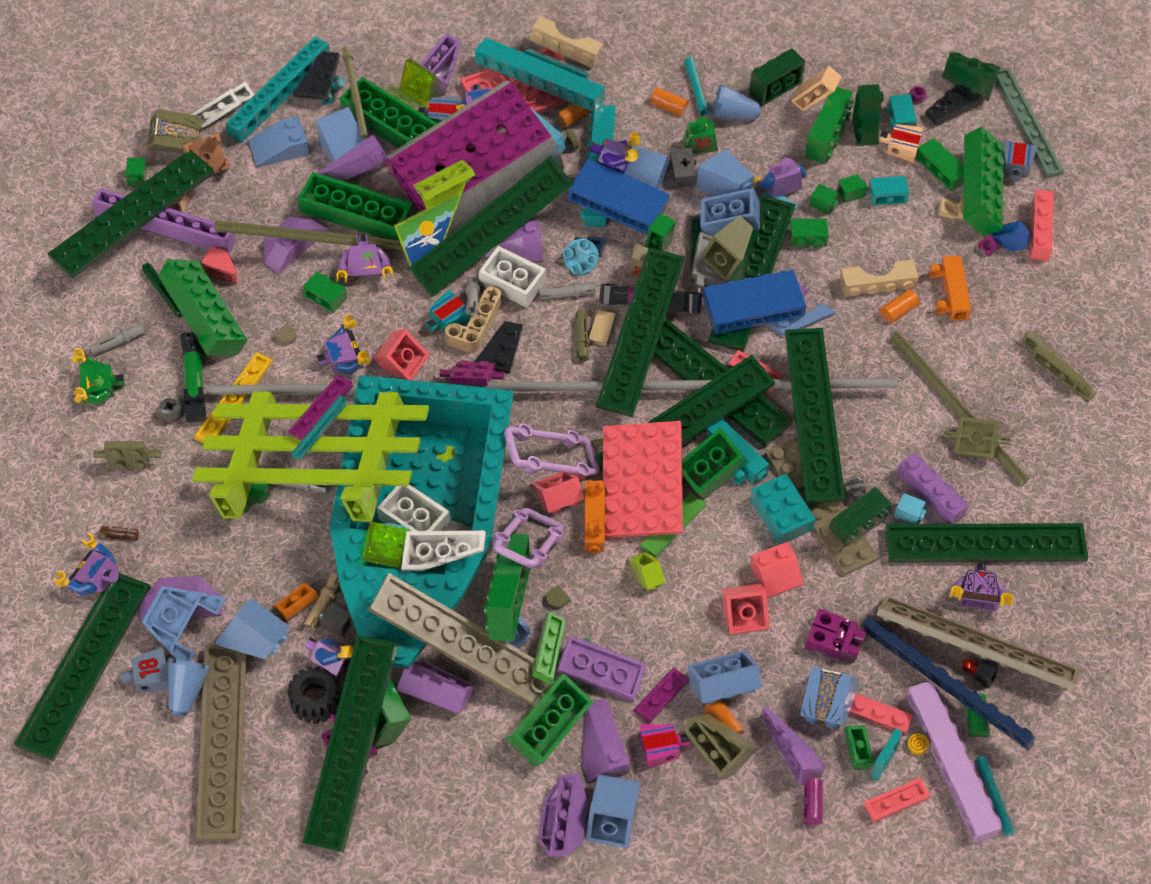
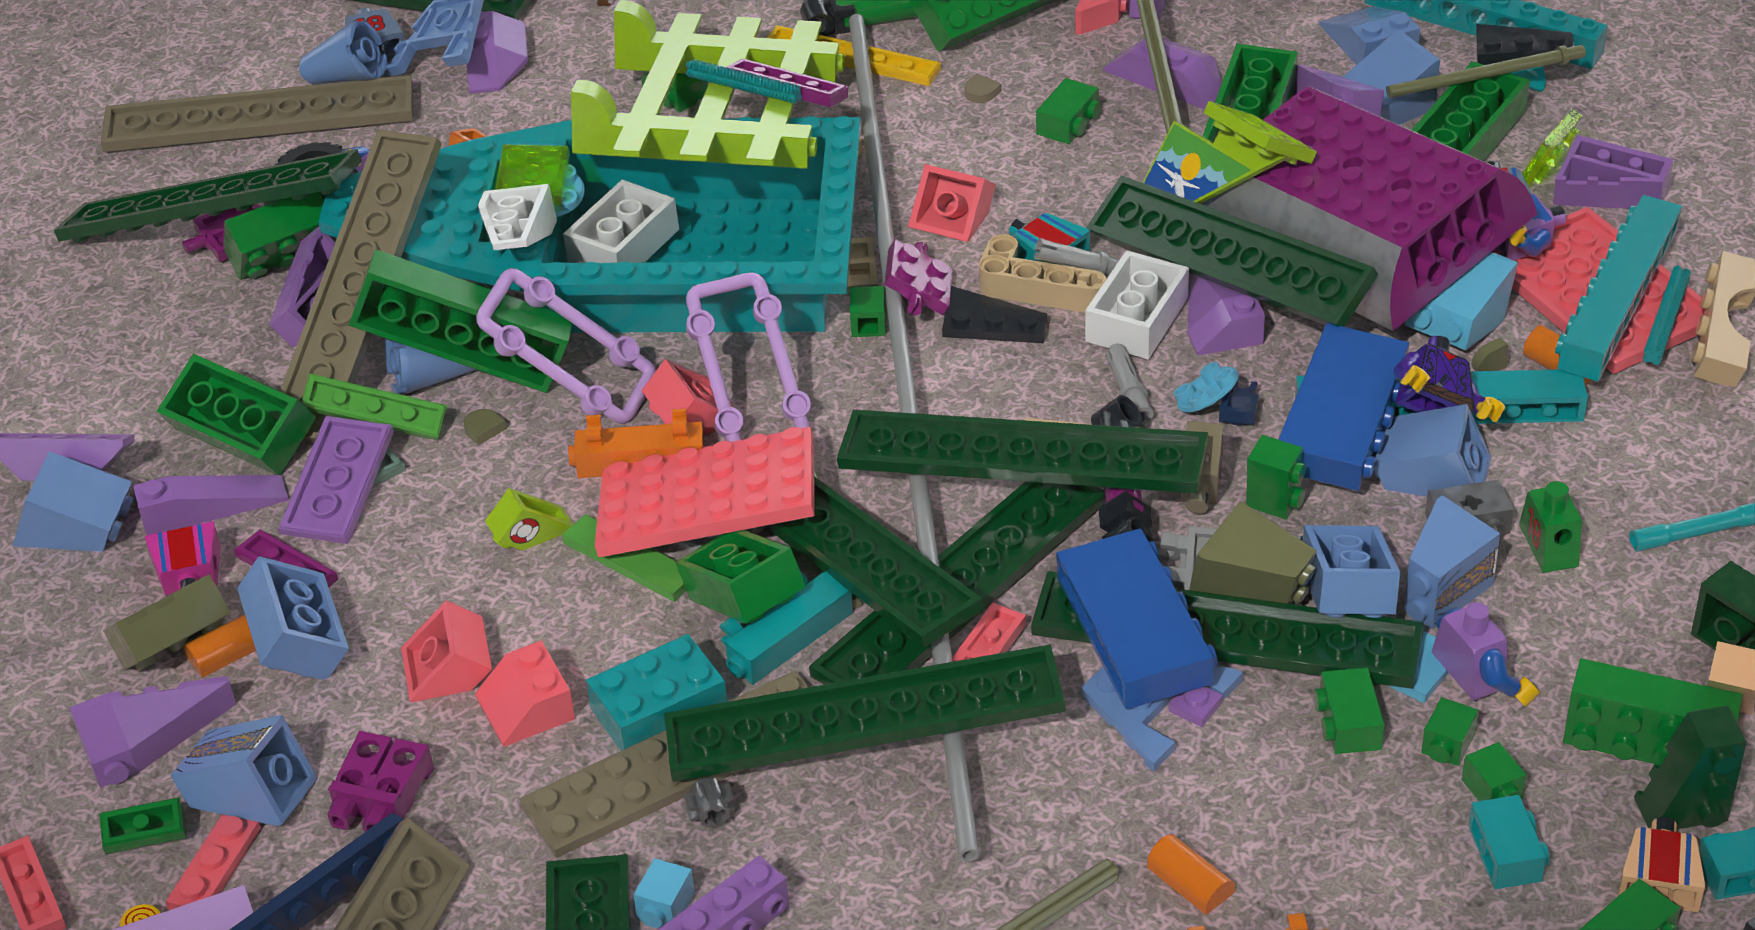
camera: 90 degrees right, 15 degrees down
(254, 631) = (420, 99): medium blue slope -> none
(343, 350) = (953, 140): torso -> none
(363, 260) = (1130, 133): medium lavender torso -> none
(582, 341) = (1033, 408): olive pin -> none
(669, 101) = (1645, 486): orange brick -> none
(733, 105) = (1656, 566): medium blue cone -> none
(813, 801) = (43, 765): magenta brick -> none
(856, 281) = (1268, 868): tan arch -> none
(861, 516) = (625, 794): dark green wedge -> none
(886, 754) = (106, 853): teal tile -> none

